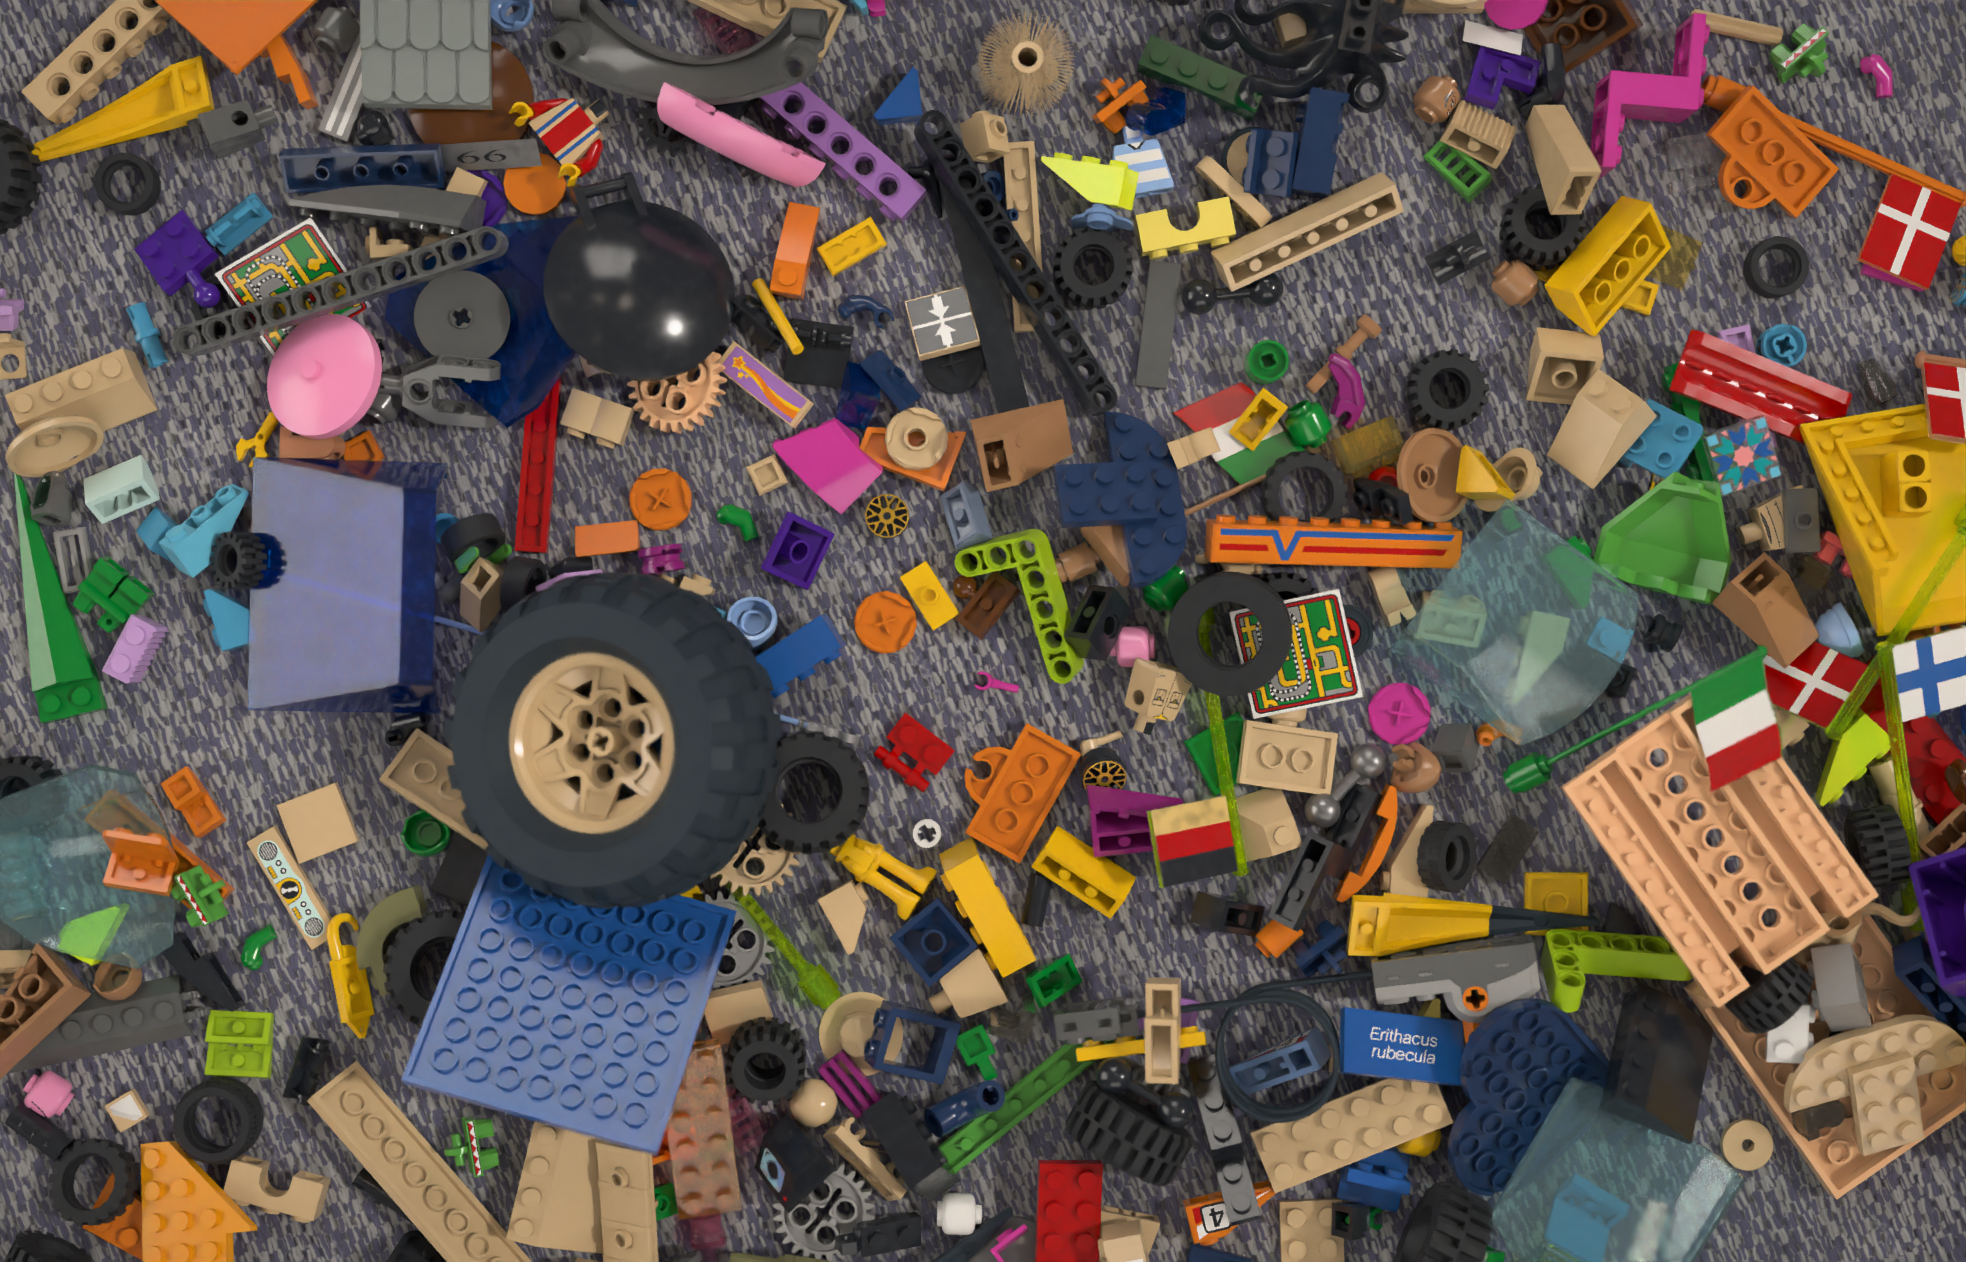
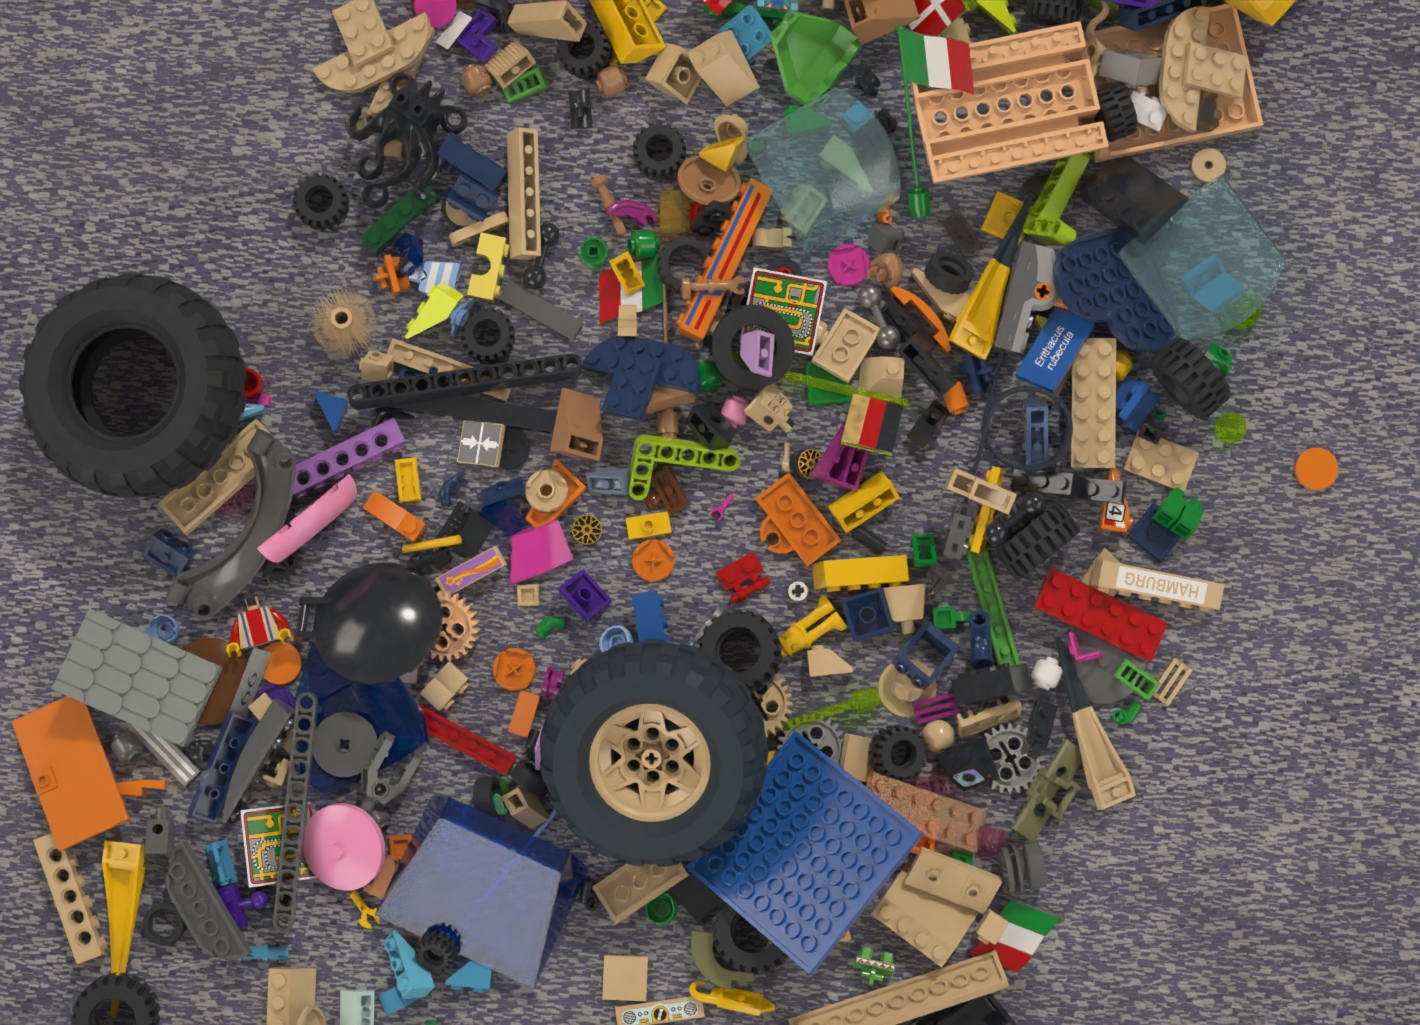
camera: 65 degrees left, 5 degrees down
(165, 225) = (203, 907): none -> dark grey plate
(1223, 645) = (758, 351): none -> lavender slope
(1273, 510) = (688, 286): none -> medium nougat piece

